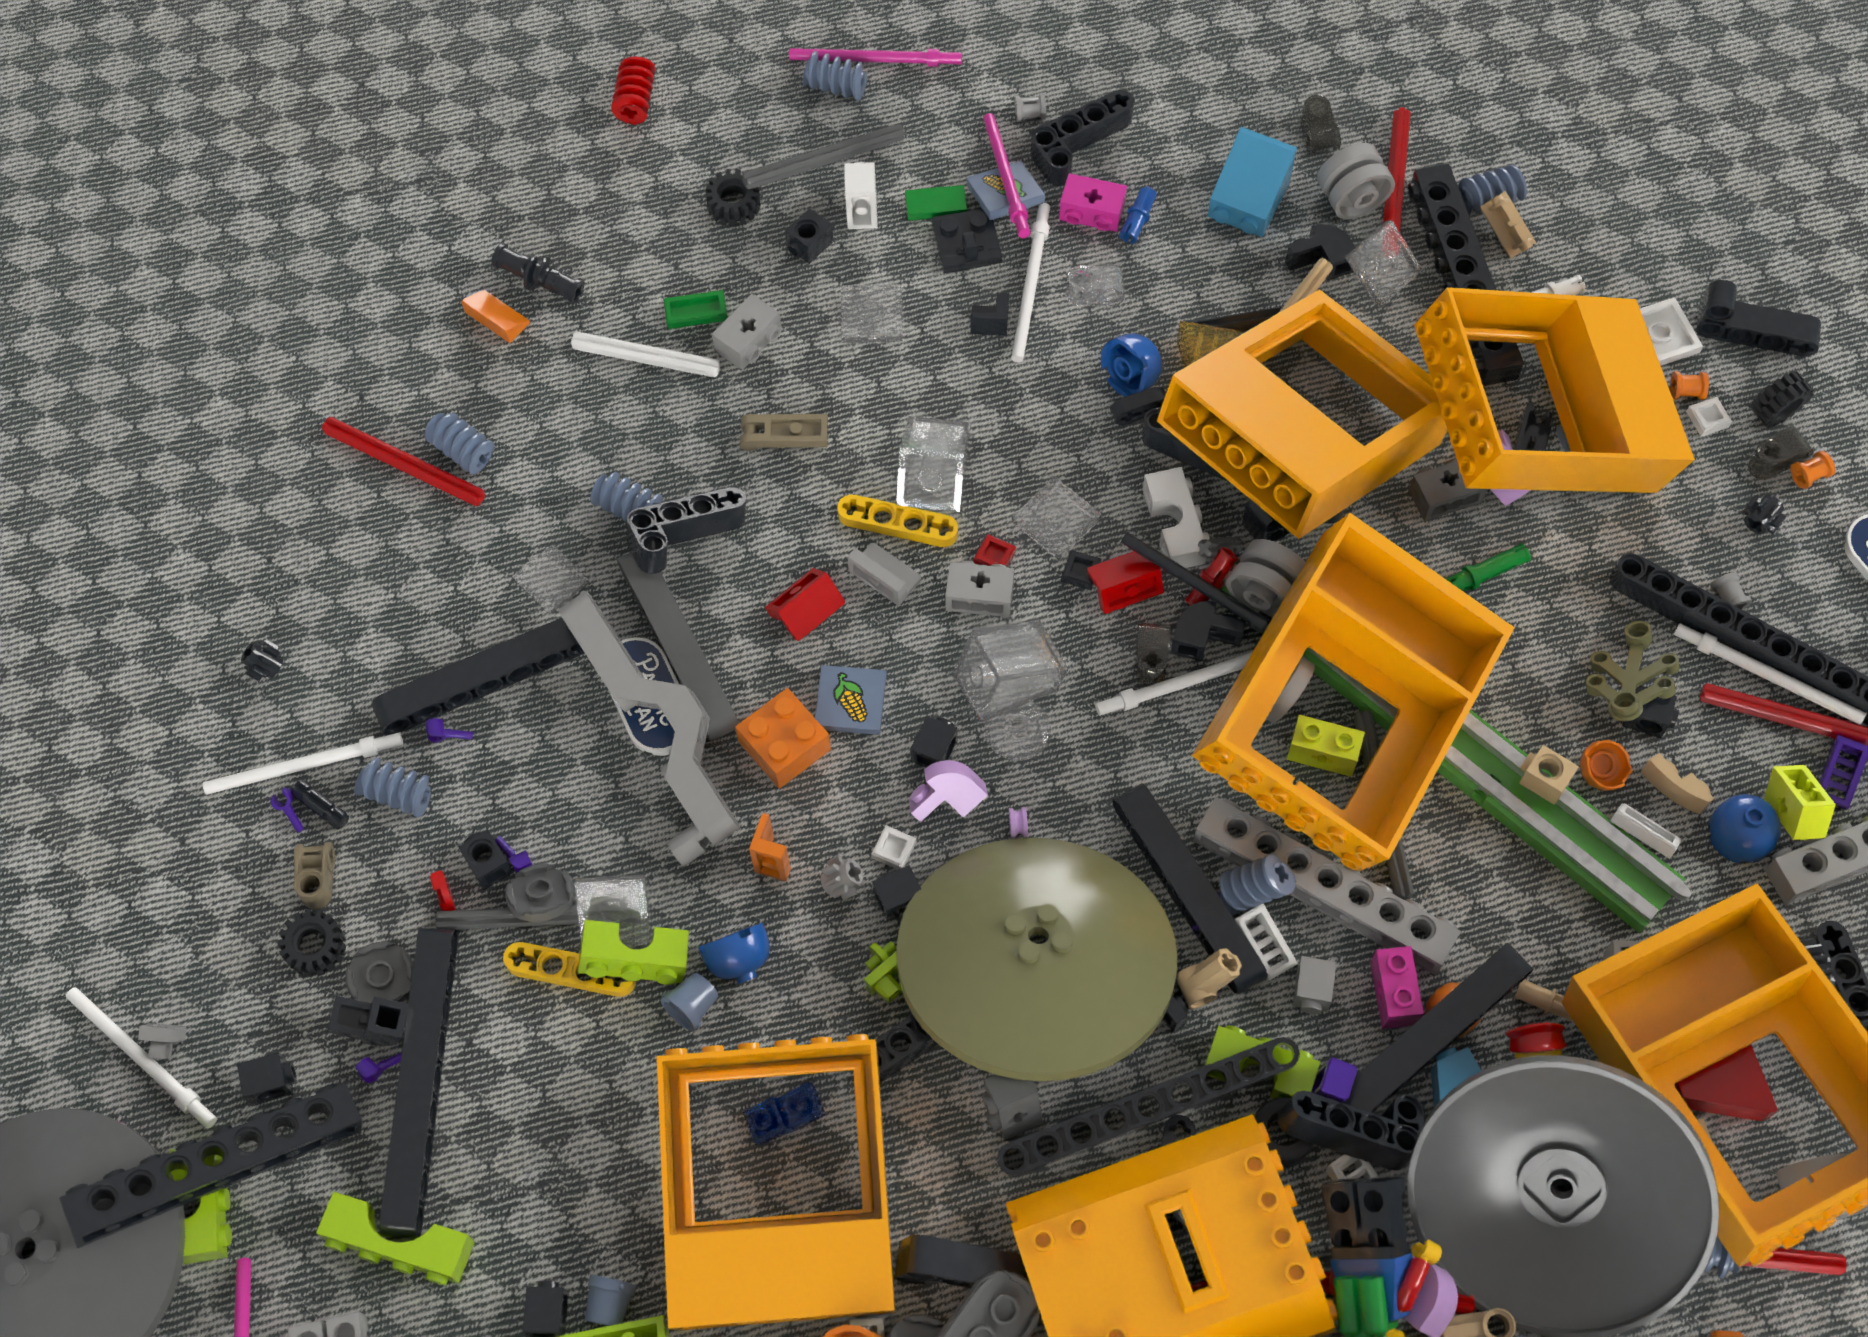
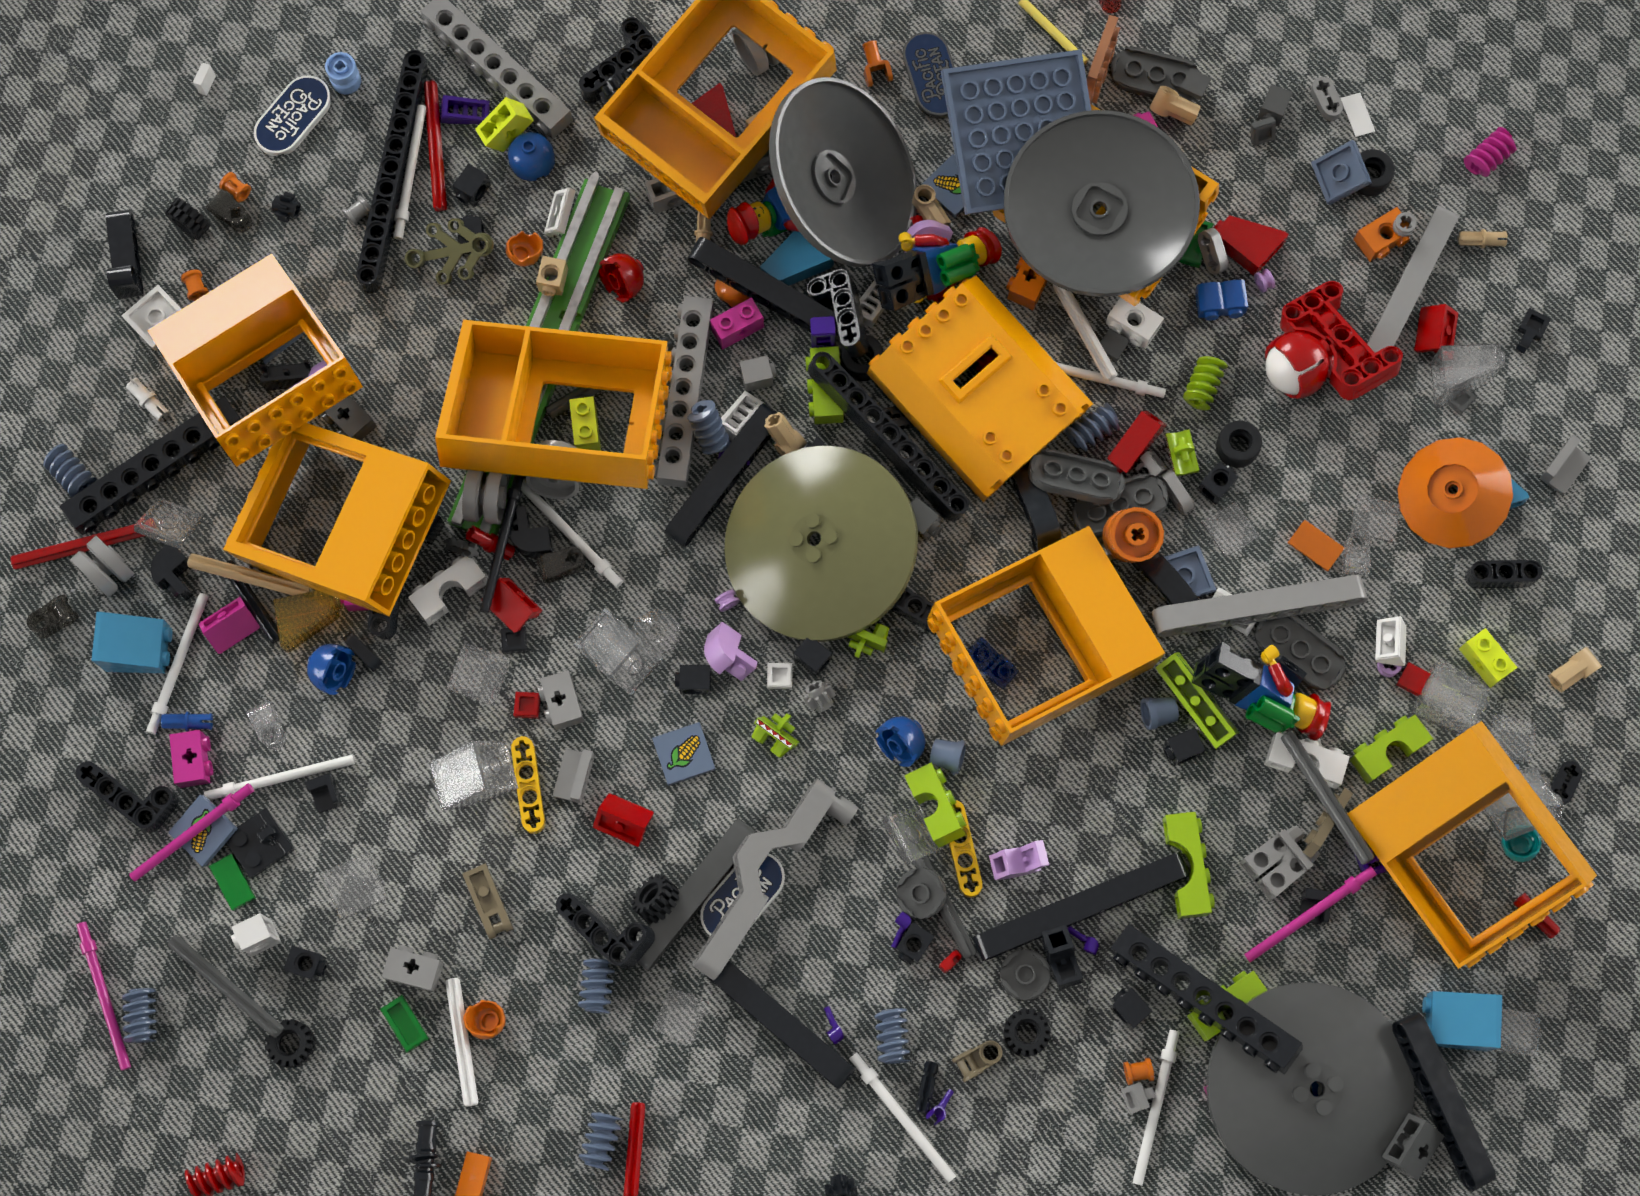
camera: 115 degrees left, 10 degrees up
(190, 1053) = (1138, 1071): none -> orange bush
(514, 1024) = (1019, 861): none -> lavender brick
(653, 378) = (484, 1019): none -> orange hair
(690, 592) = (655, 898): none -> black tyre
(766, 856) = (826, 755): orange panel -> none
(783, 738) = (736, 782): orange brick -> none
(822, 810) = (767, 728): none -> lime hips
(1030, 107) = (106, 840): light grey bush -> none
(1167, 196) = (160, 707): none -> white bar
(1233, 285) = (229, 625): none -> dark pink panel
(1474, 575) = (412, 377): green pin -> none
(1507, 225) = (98, 448): tan hinge -> none
(1521, 871) = (622, 275): none -> red cylinder
(1686, 792) = (520, 196): tan slope -> none
(1709, 416) = (213, 266): white tile -> none
(1723, 737) = (471, 185): none -> black brick

